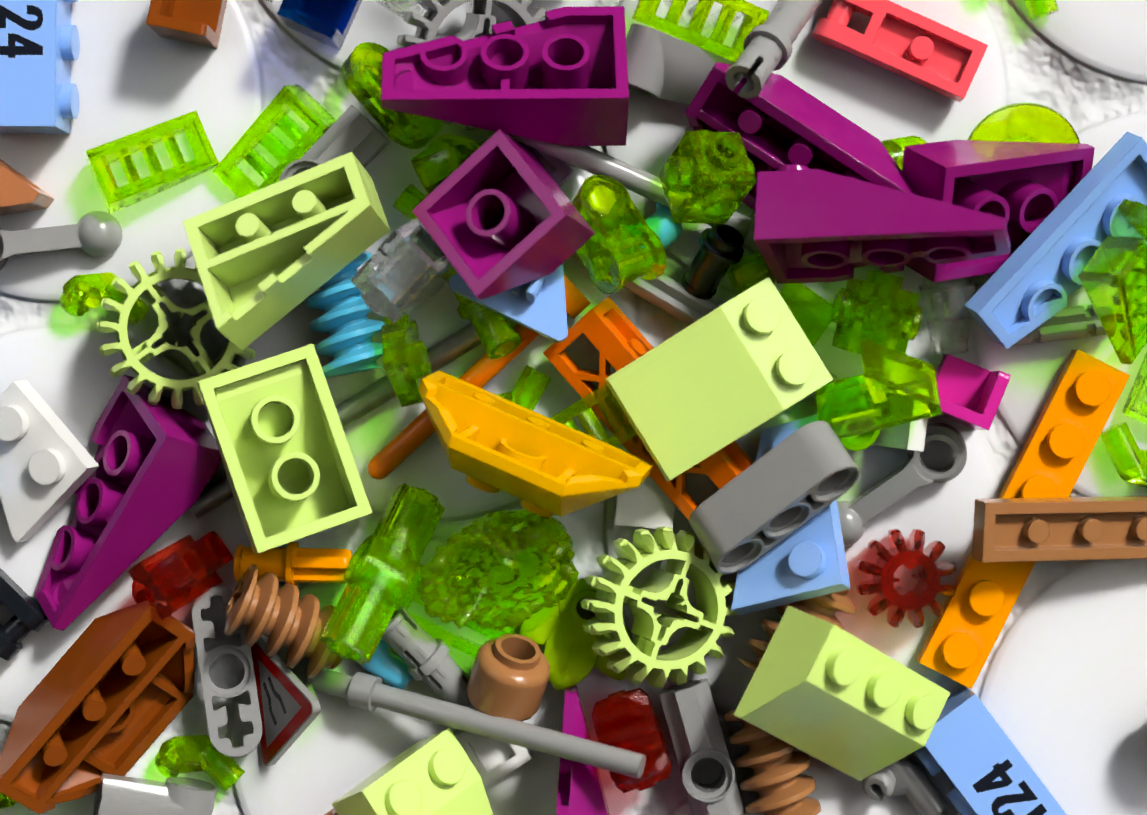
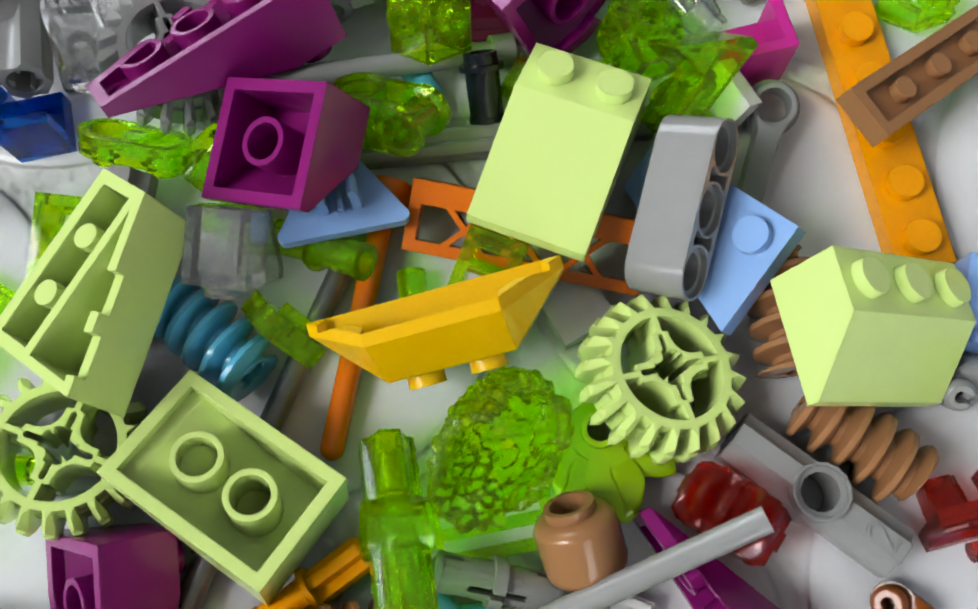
camera: 30 degrees left, 15 degrees down
(902, 599) = (843, 197): clear red gear -> none

